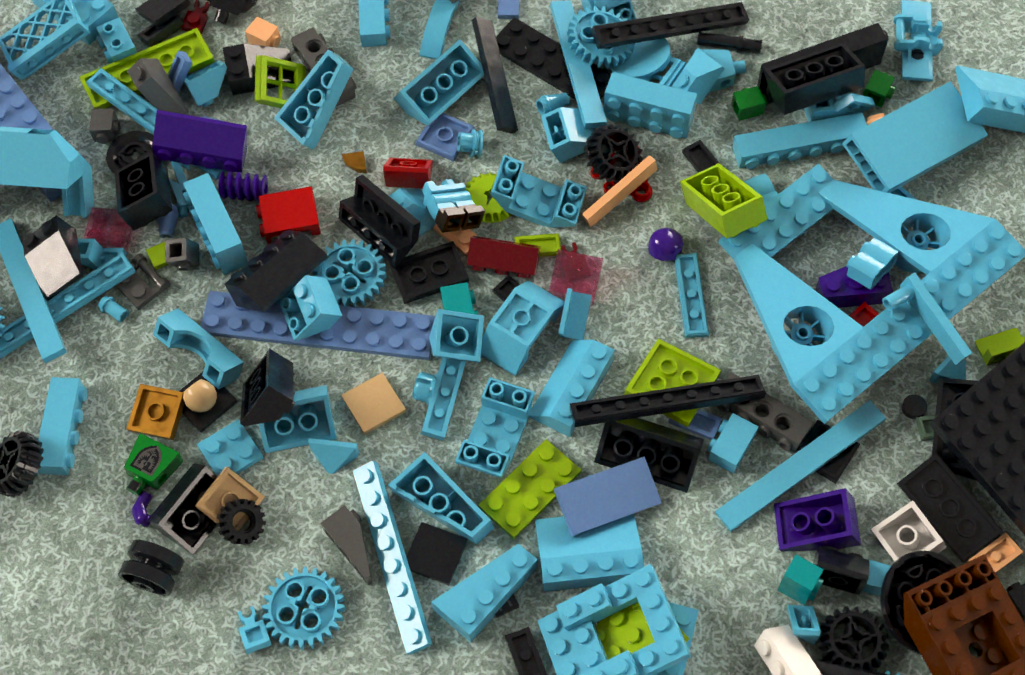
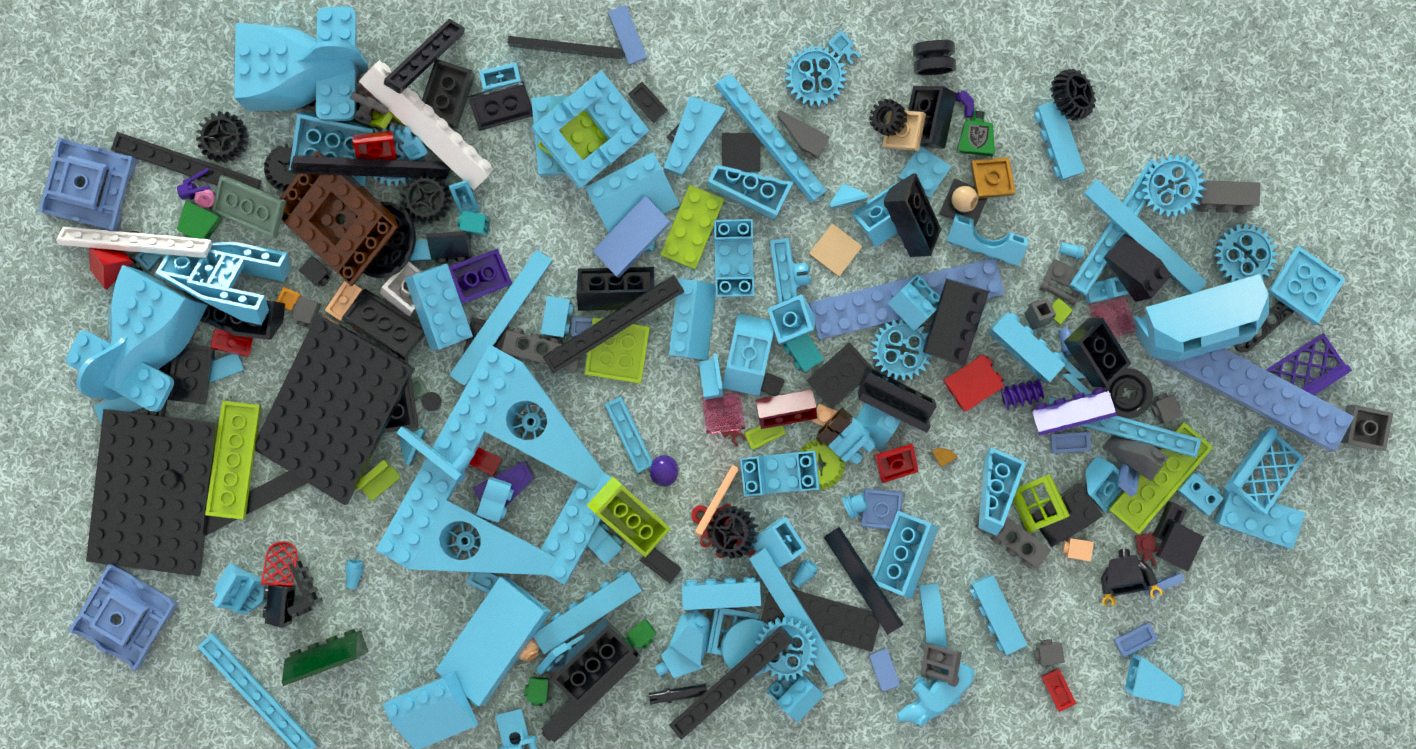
camera: 165 degrees right, 25 degrees up
(876, 496) = (438, 307): none -> medium azure brick

